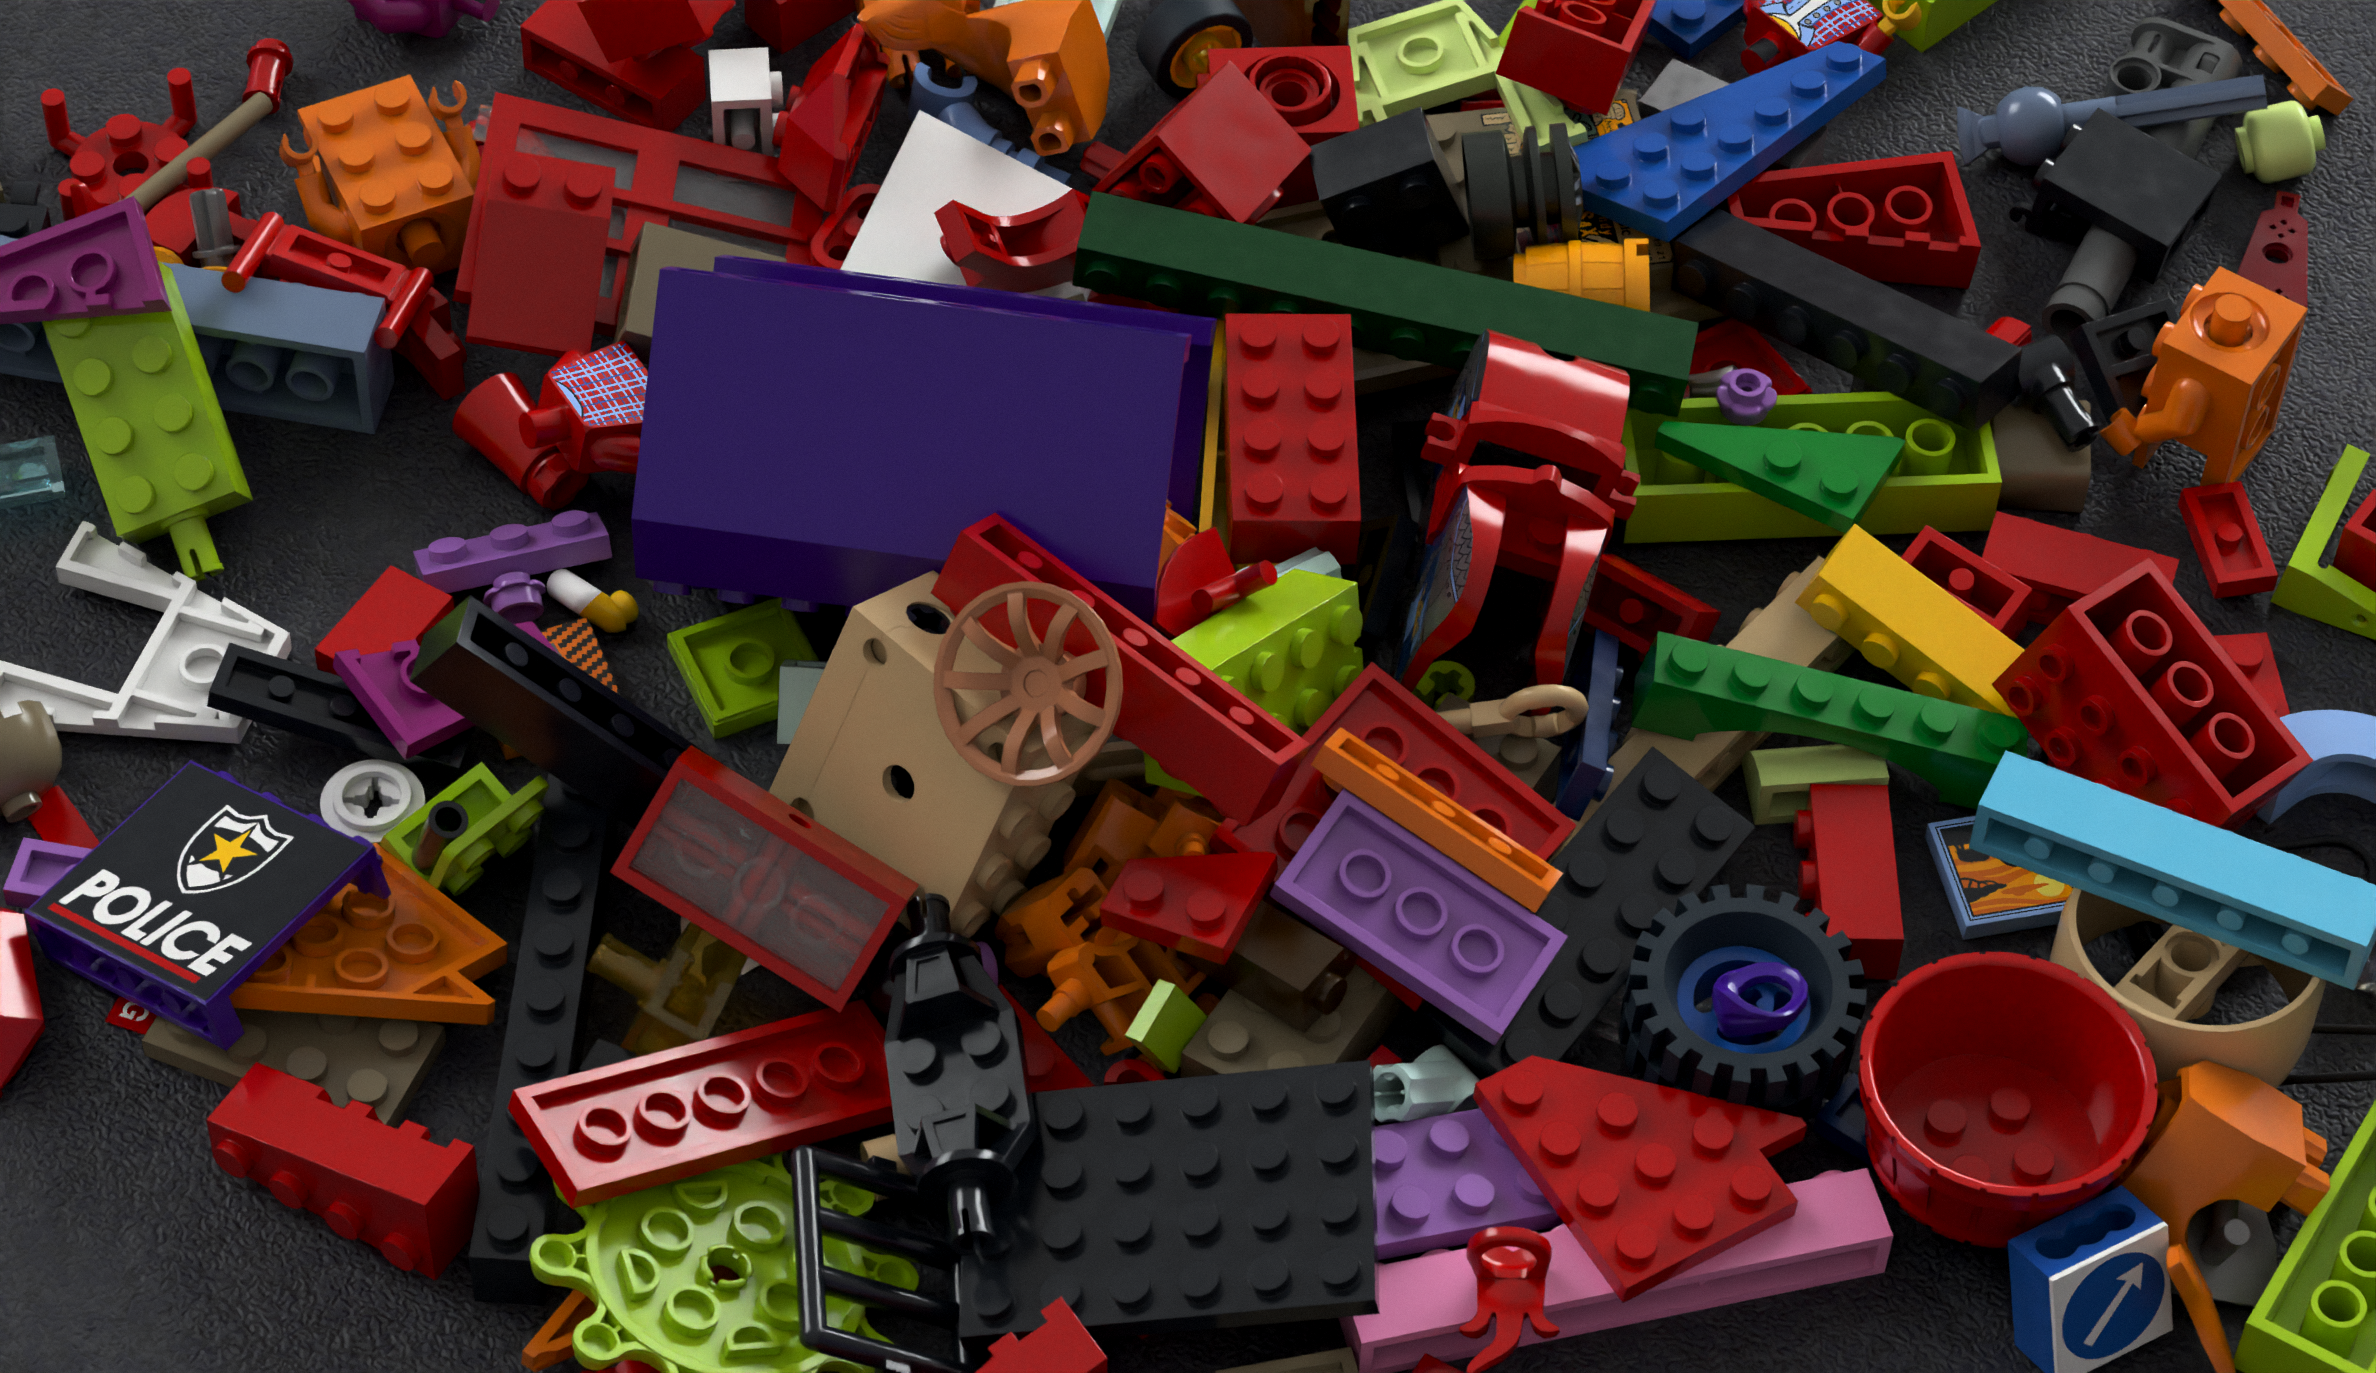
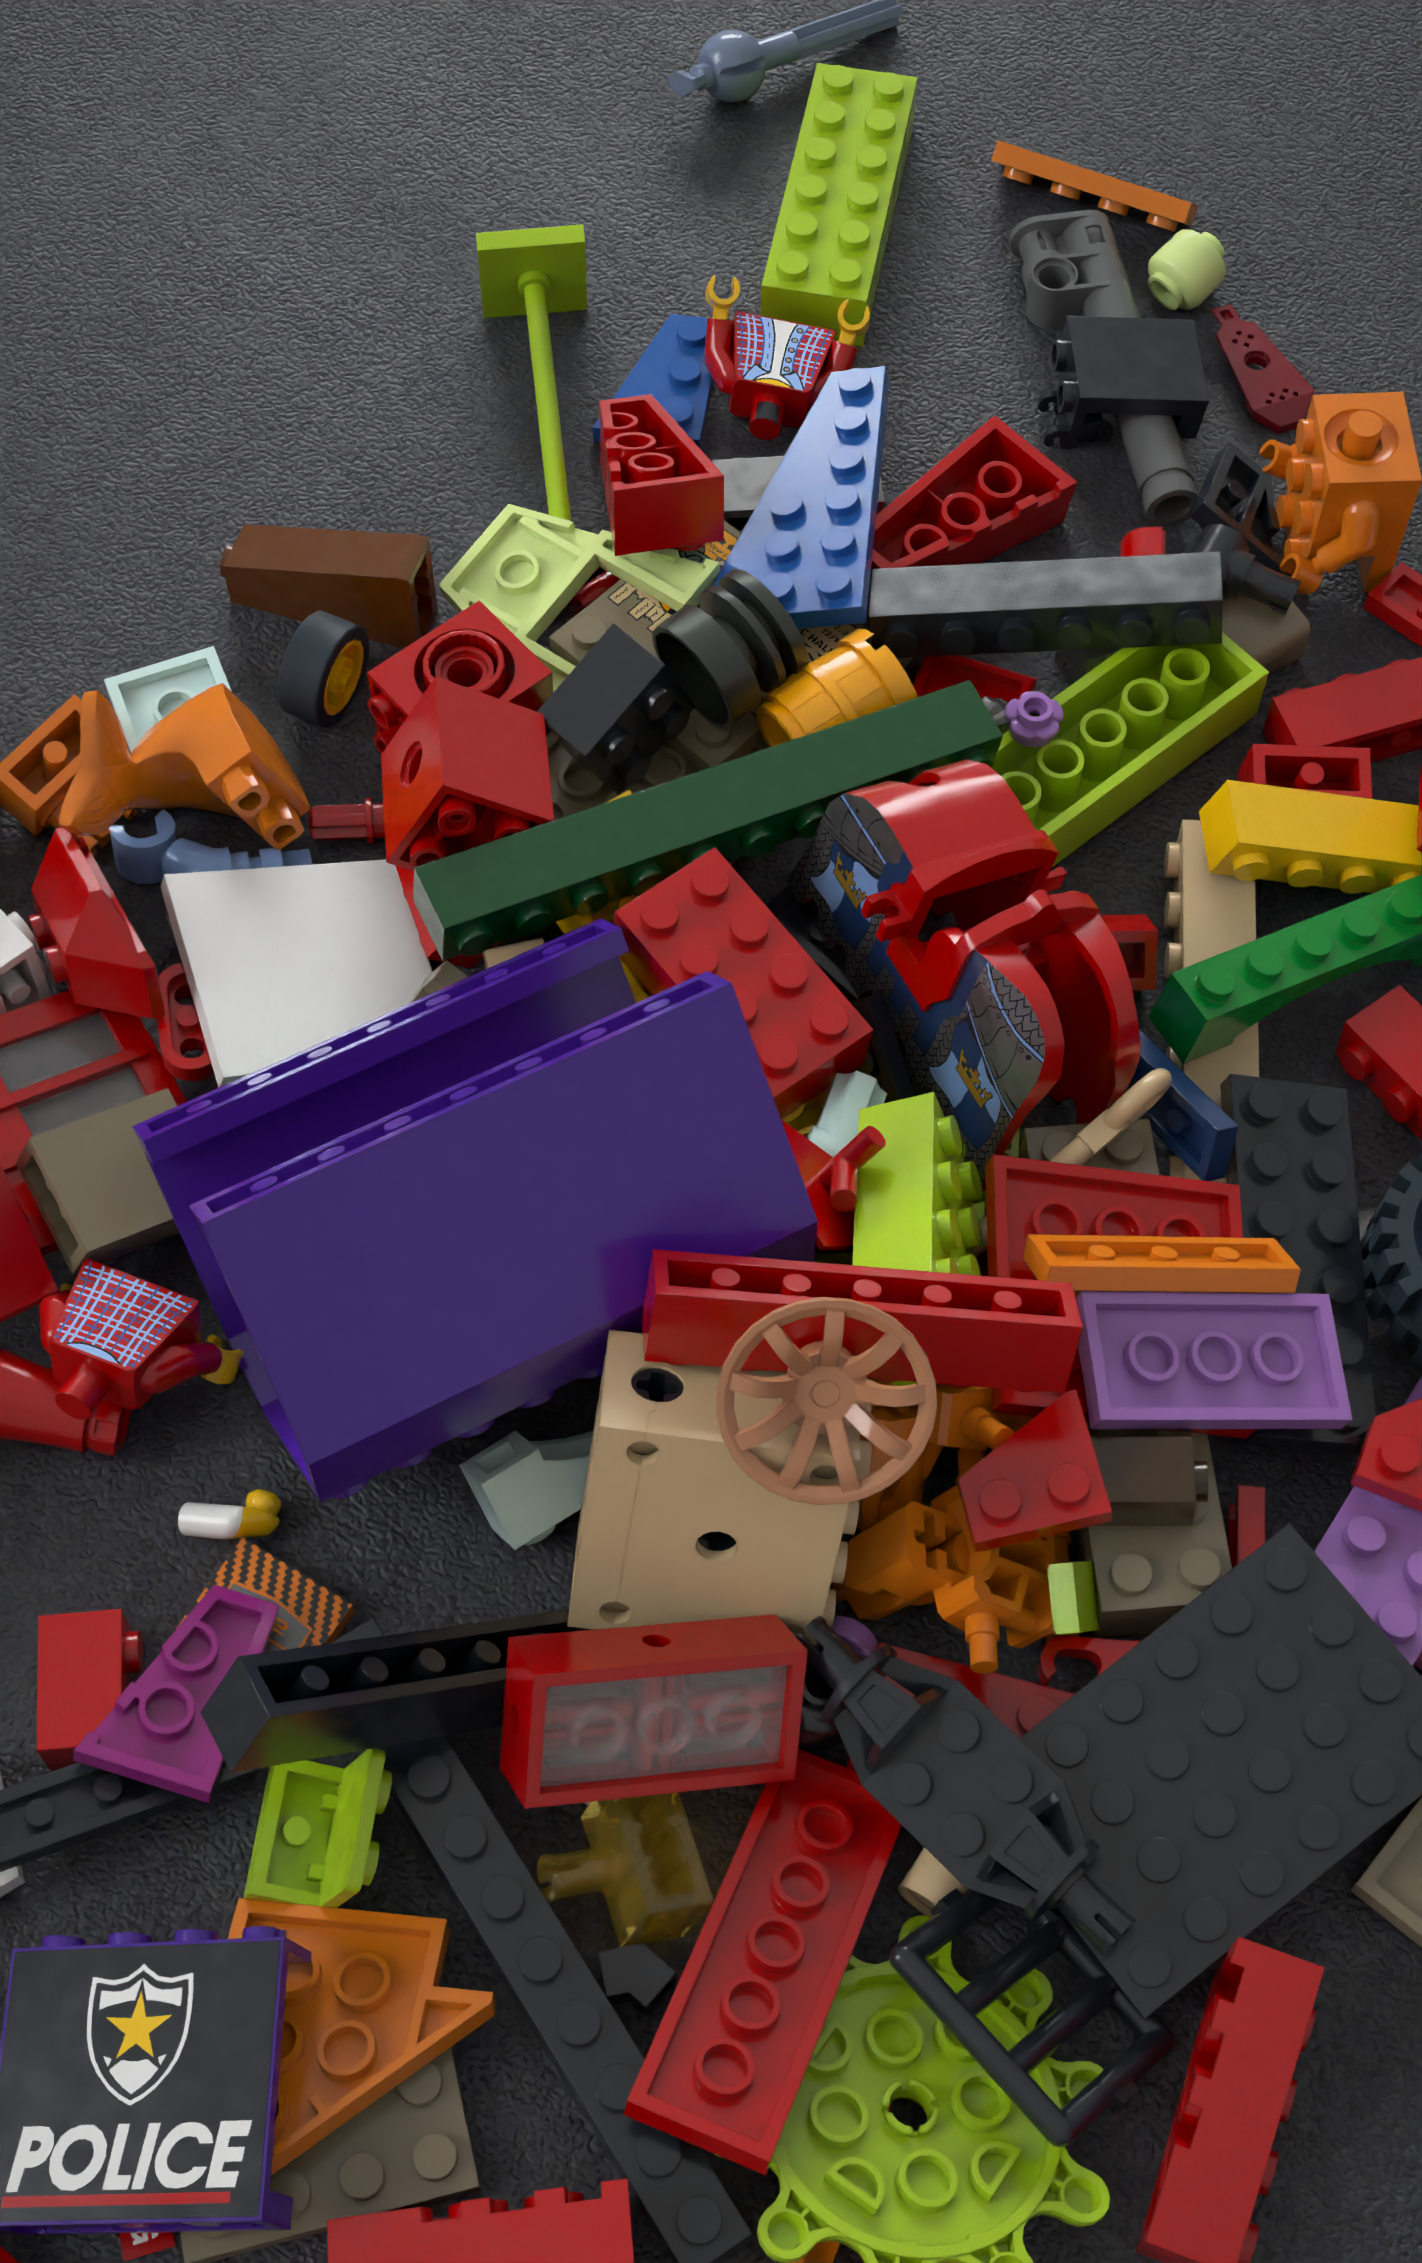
camera: 35 degrees left, 10 degrees up
(353, 788) = (166, 1855): white gear -> none
(443, 825) = (317, 1868): black axle -> none
(464, 564) = (125, 1521): medium lavender plate -> none
(516, 597) = (164, 1563): medium lavender plate -> none
(736, 663) = (417, 1507): lime tile -> none
(1016, 250) = (356, 942): red arch -> none
(1426, 1088) = (1298, 1493): light aqua piece -> none
(1781, 777) = (1312, 1024): yellowish green brick -> none
(1807, 471) = (1131, 754): green wing -> none
(2034, 121) = (1014, 356): sand blue piece -> none

